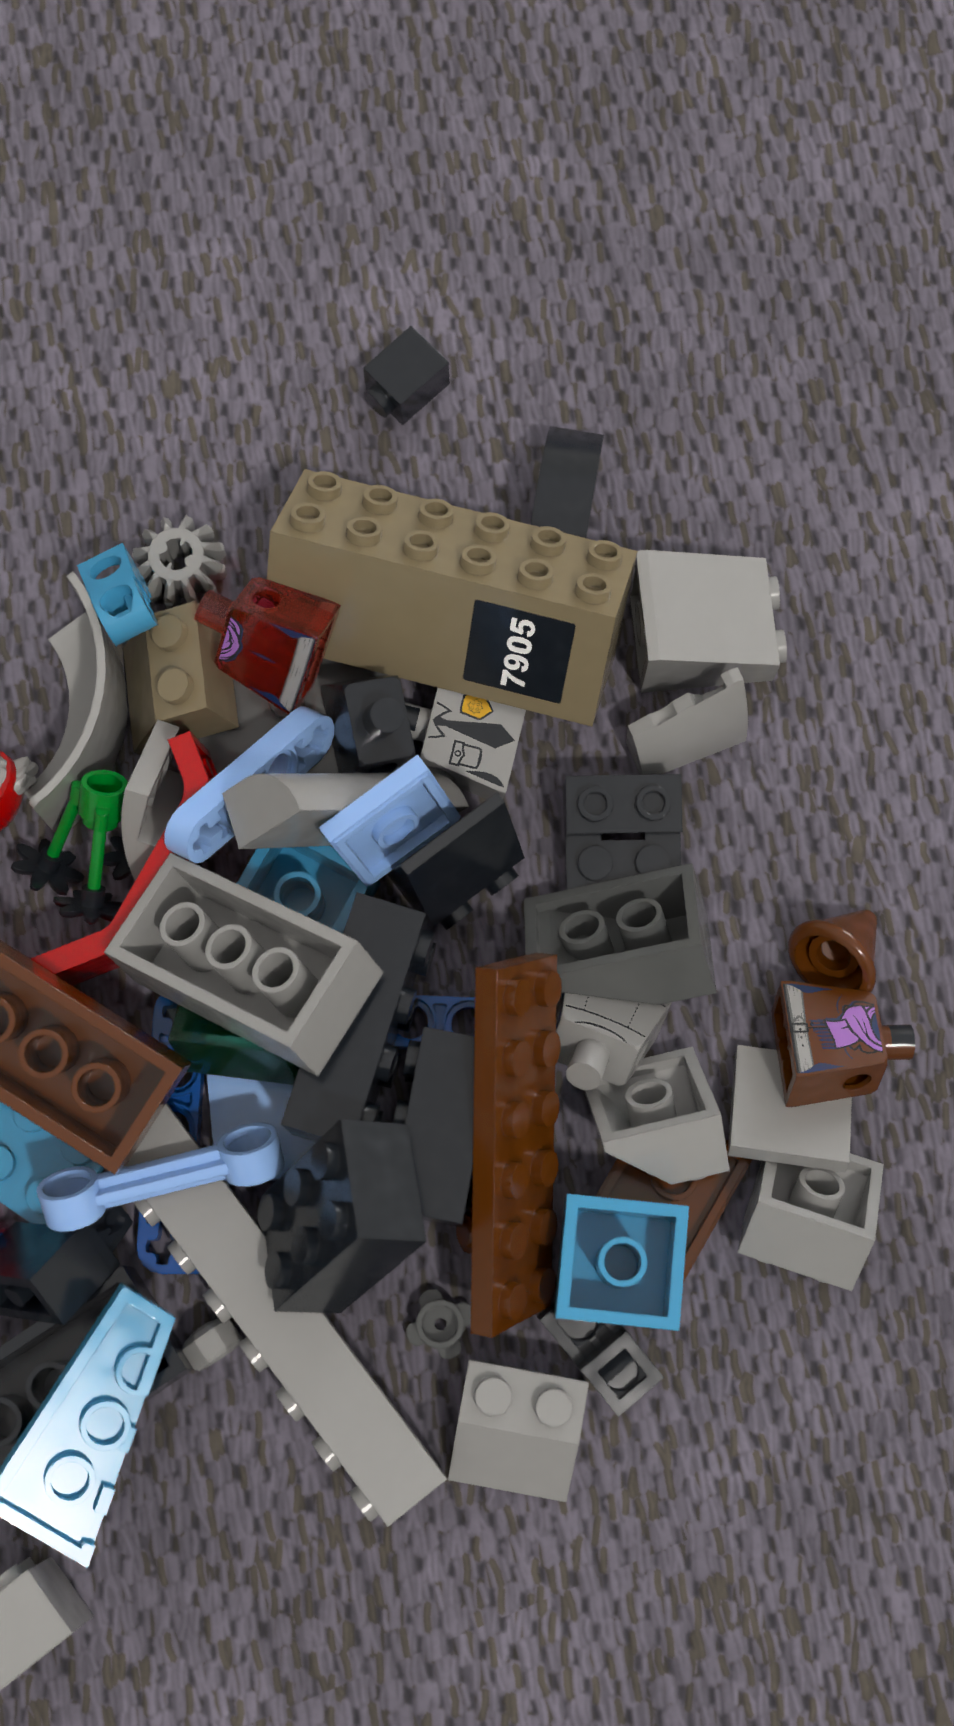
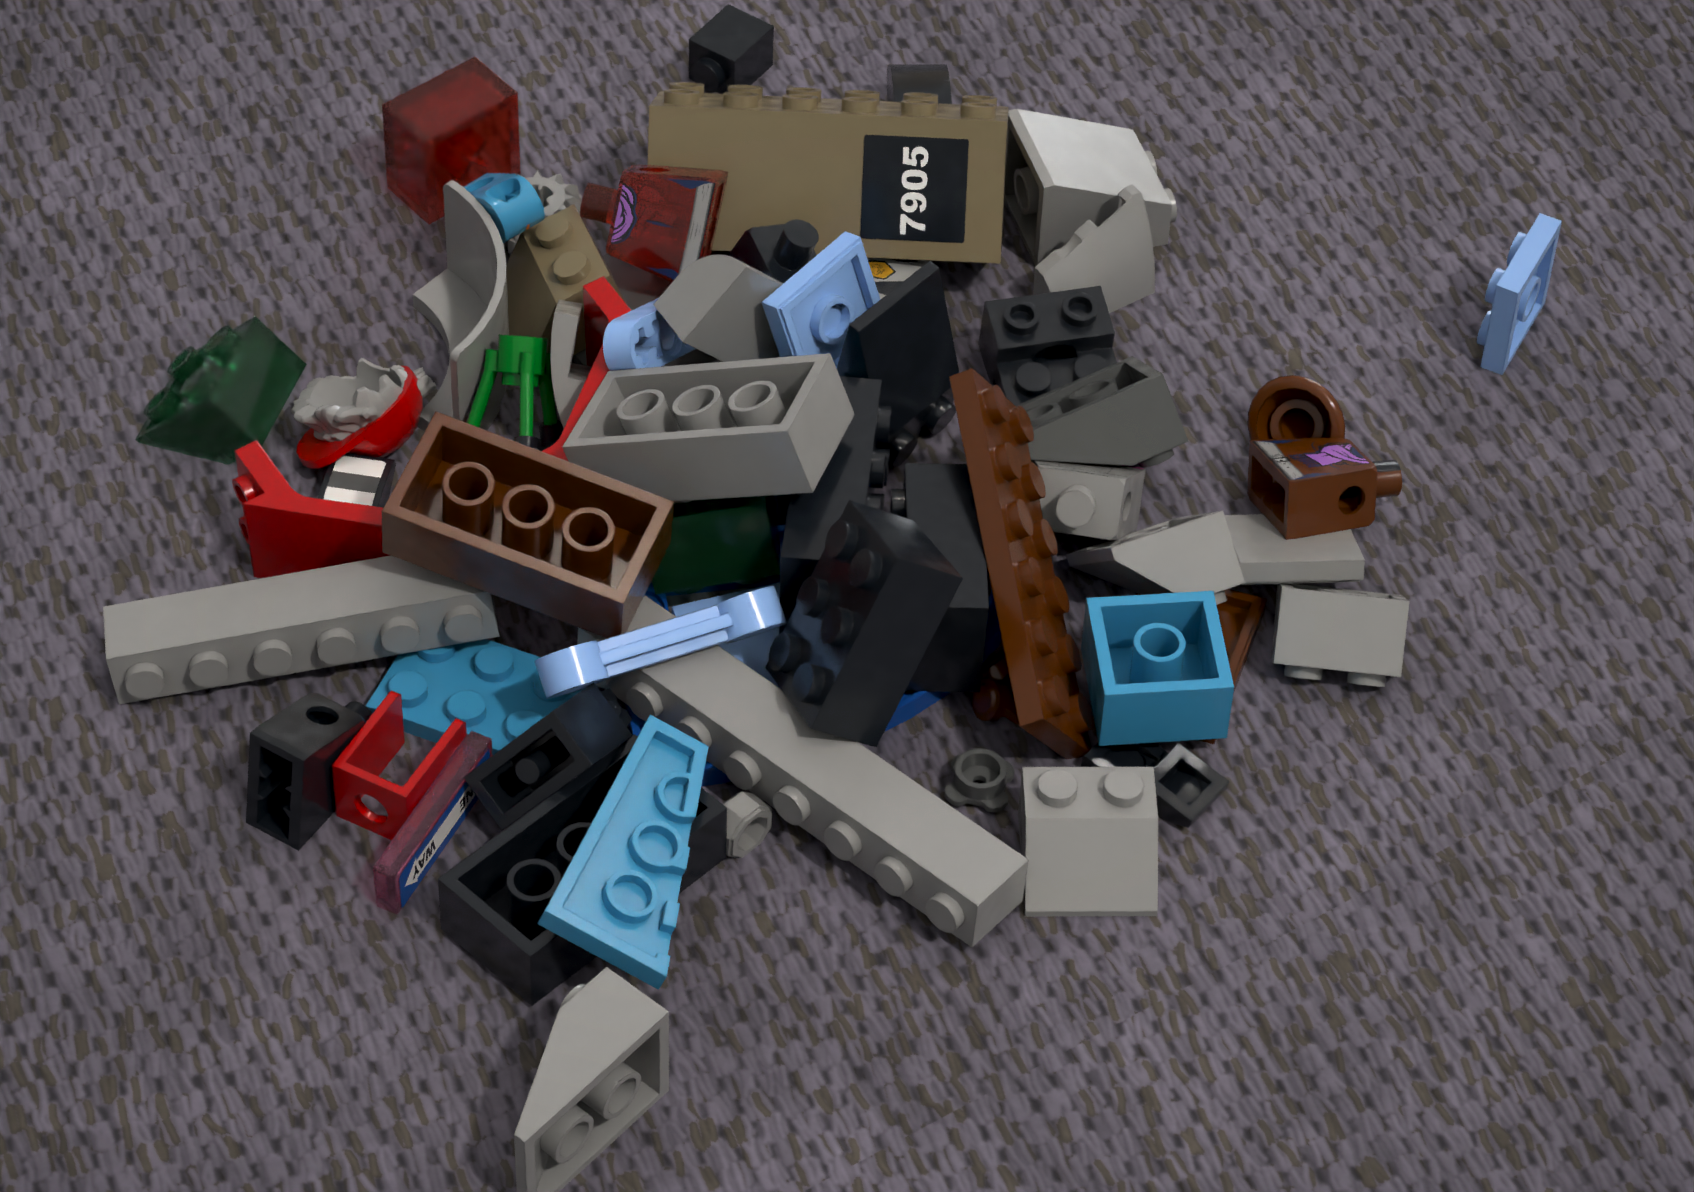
camera: 15 degrees left, 30 degrees down
(109, 466) = (449, 131): none -> clear red brick

